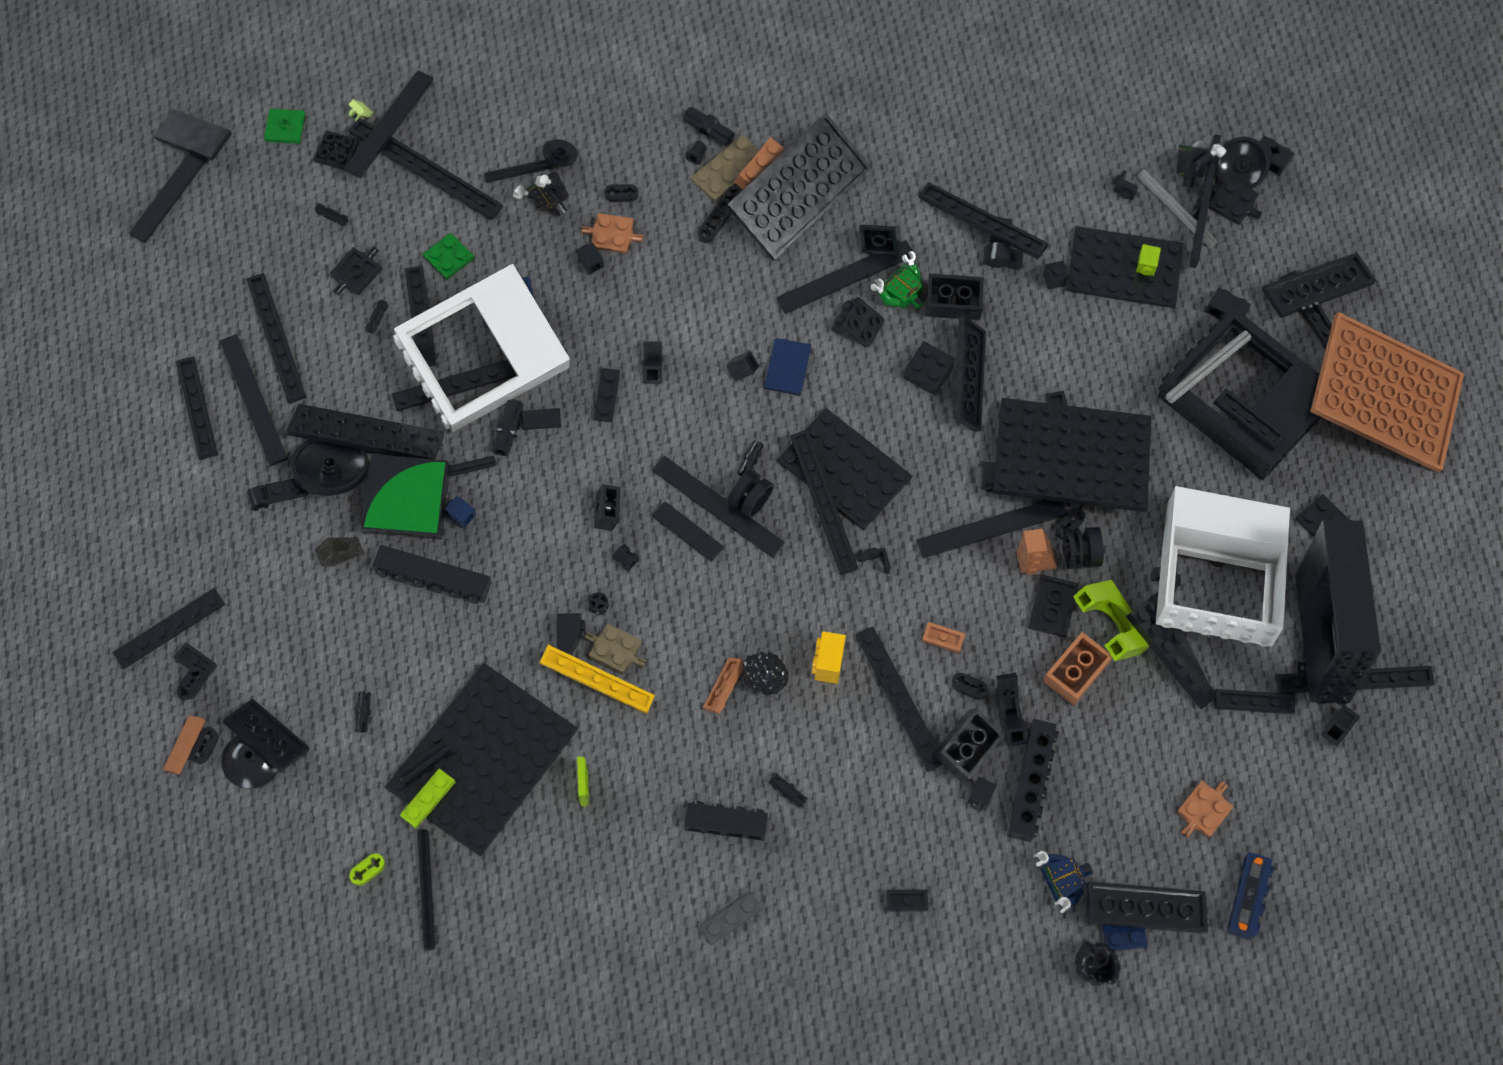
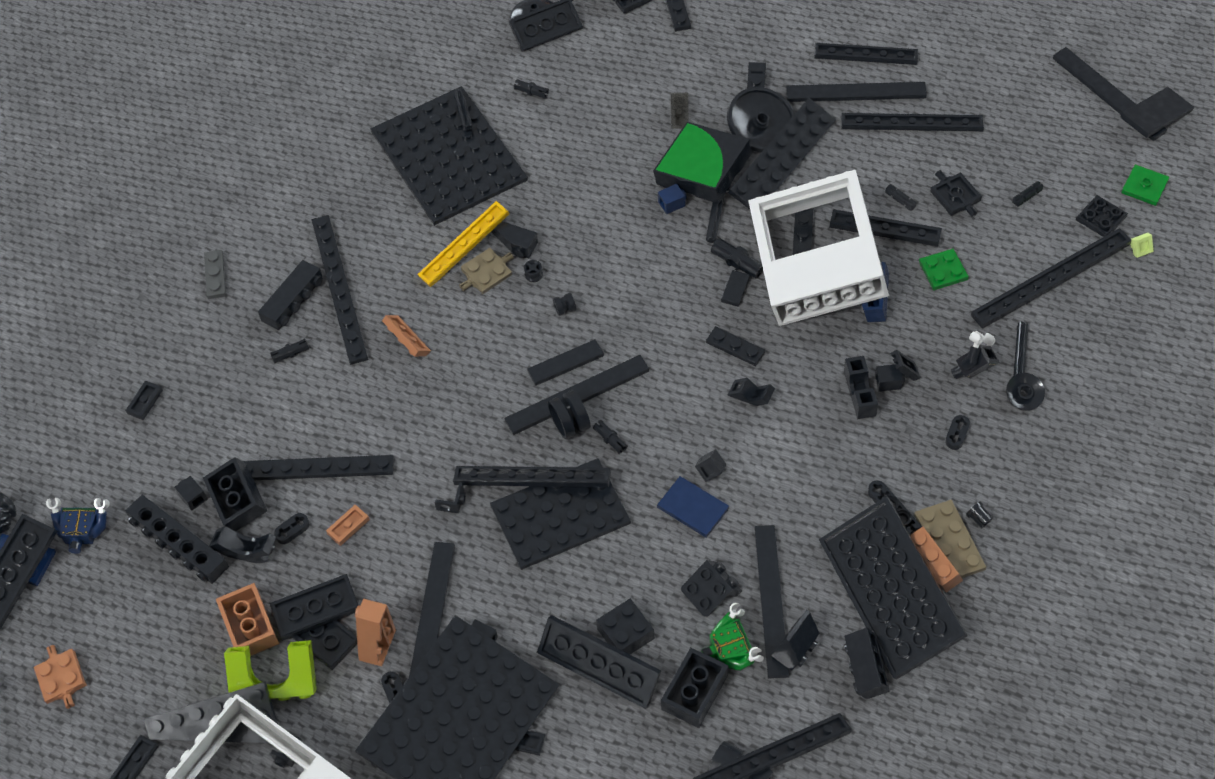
camera: 120 degrees right, 10 degrees down
(370, 873) = (407, 59): lime beam -> none
(388, 124) = (1114, 260): black tile -> none
(426, 890) = (367, 90): black axle -> none
(427, 798) = (432, 105): lime plate -> none
(432, 574) = (624, 164): black brick -> none
(575, 245) = (905, 364): none -> black tile
(583, 790) = (381, 204): lime tile -> none
(607, 507) = (616, 302): black brick -> none
(612, 233) = (912, 409): nougat plate -> none
(624, 269) = (862, 395): none -> black arch
(693, 783) = (339, 290): none -> black plate
(709, 126) = (1009, 538): black piece -> none
(765, 673) = (393, 364): black hair -> none
(829, 657) = (378, 417): yellow brick -> none
(871, 187) = (866, 663): none -> black brick
(1034, 622) = (314, 607): none -> black tile
(1085, 547) = (357, 679): black wheel -> none

